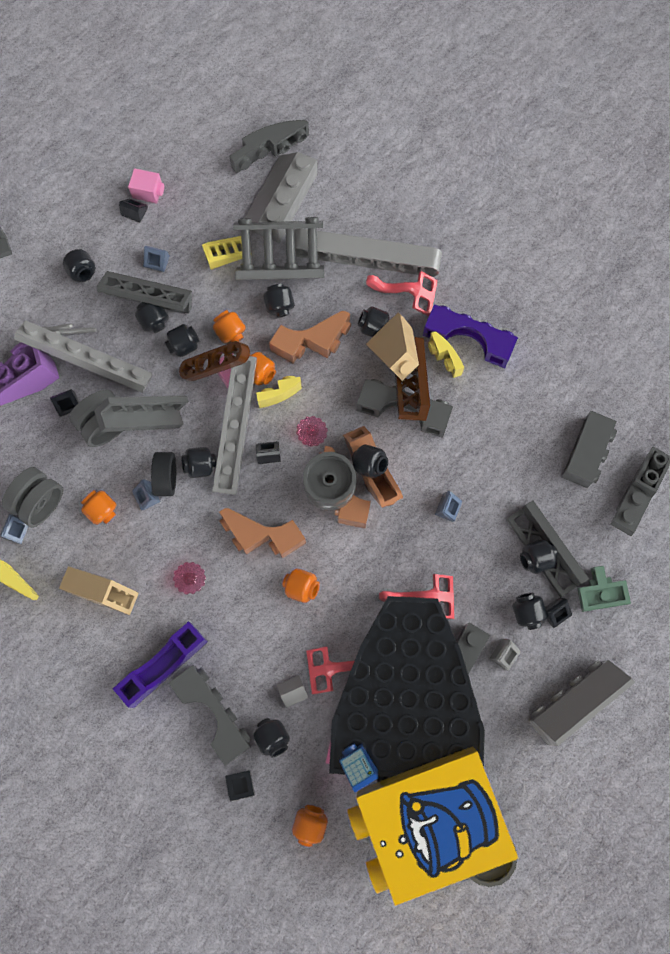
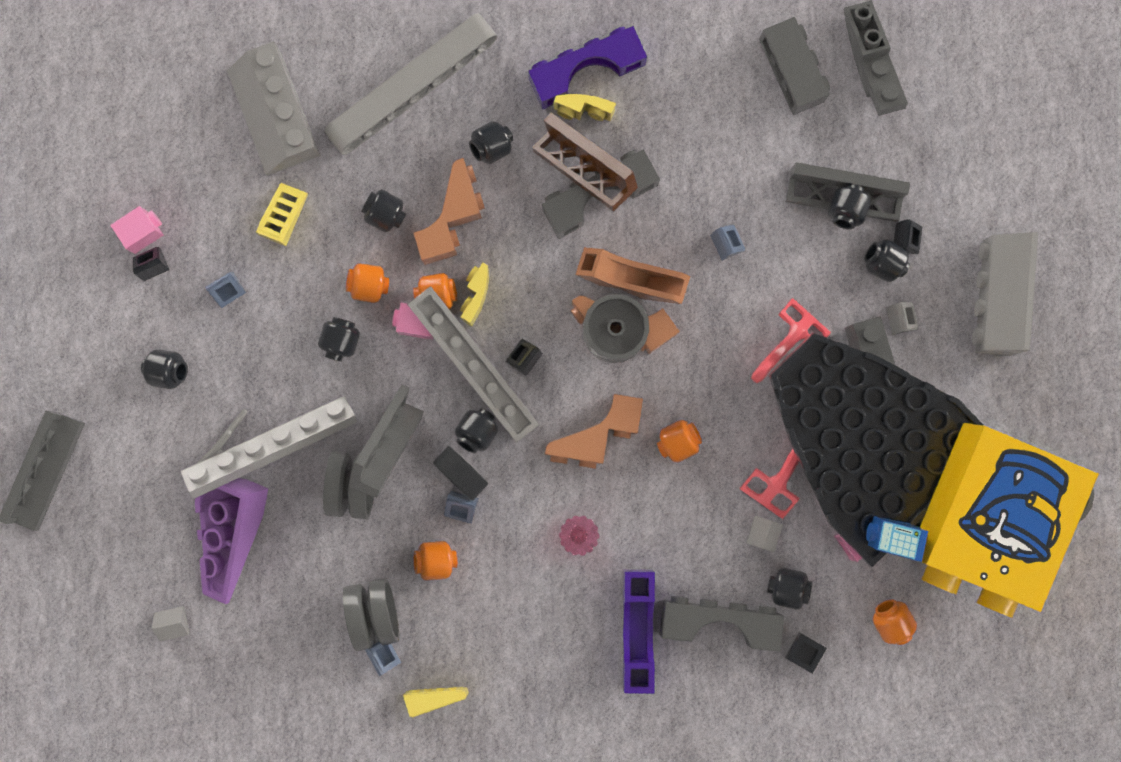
camera: 50 degrees left, 10 degrees up
(64, 402) = (298, 503): black slope -> none
(99, 590) = (515, 629): tan slope -> none
(146, 291) = (255, 330): dark grey fence -> none
(151, 317) = (285, 345): black head -> none
(213, 356) = (394, 329): reddish brown beam -> none
(270, 270) = (362, 170): dark grey fence -> none
(272, 138) = (205, 58): dark grey slope -> none
(312, 431) = (542, 299): clear pink piece -> none
(370, 461) = (630, 274): black head -> none
(396, 346) = (538, 146): tan slope -> none
(415, 289) = (494, 73): coral piece -> none
(603, 592) = (928, 180): sand green hinge -> none

